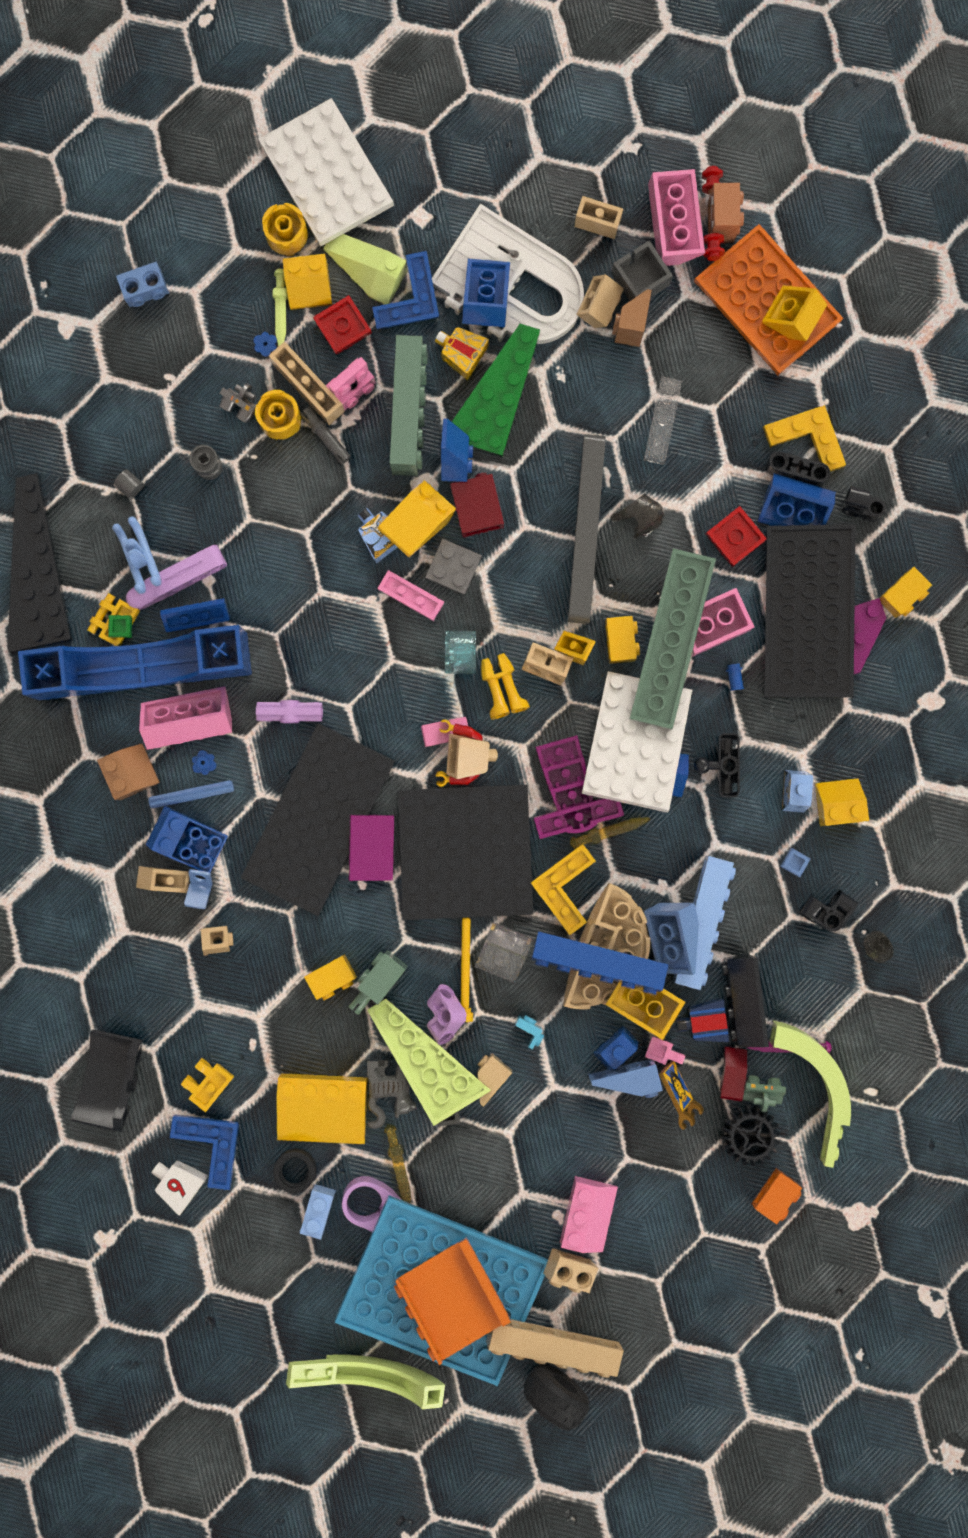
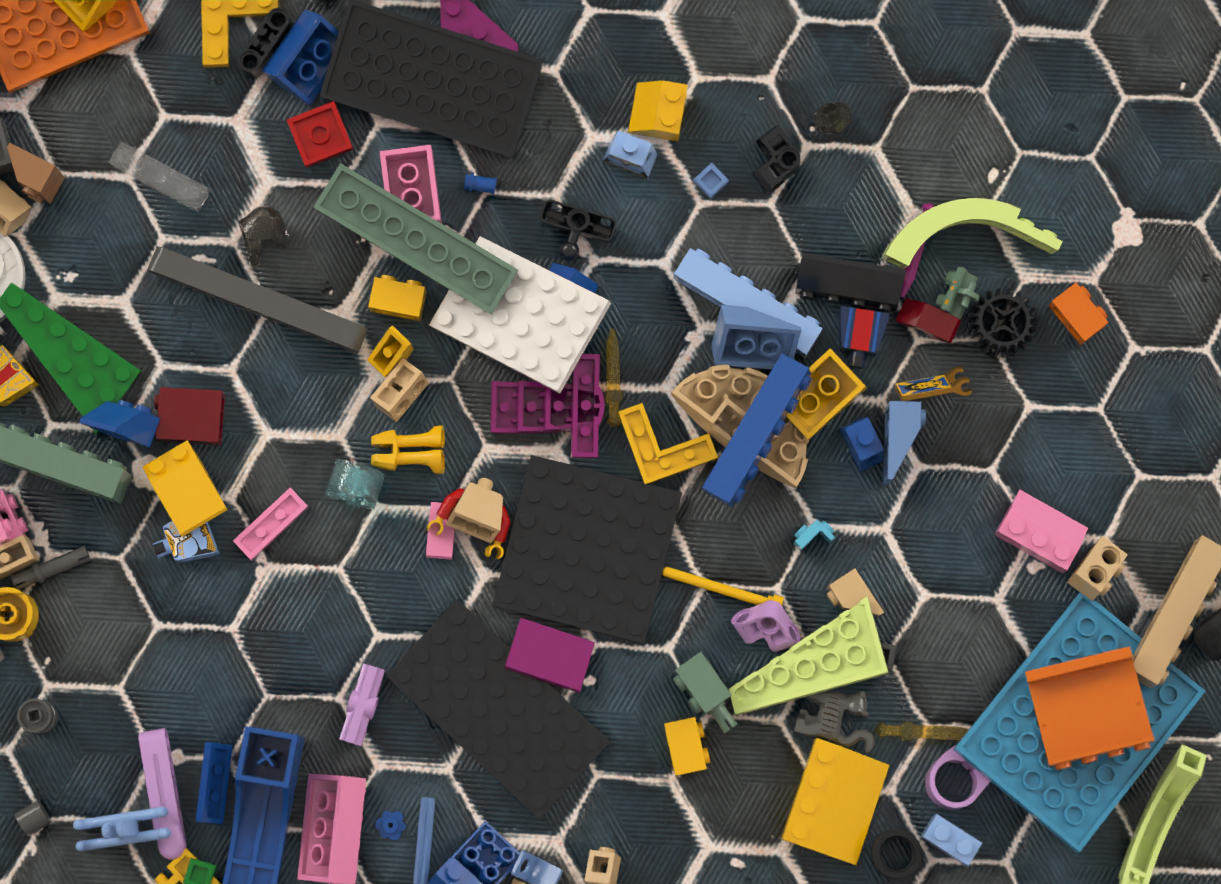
camera: 75 degrees left, 5 degrees down
(453, 567) = (252, 465): flat silver plate -> none
(504, 952) = (715, 538): clear slope -> none
(660, 1051) = (879, 393): bright pink plate -> none

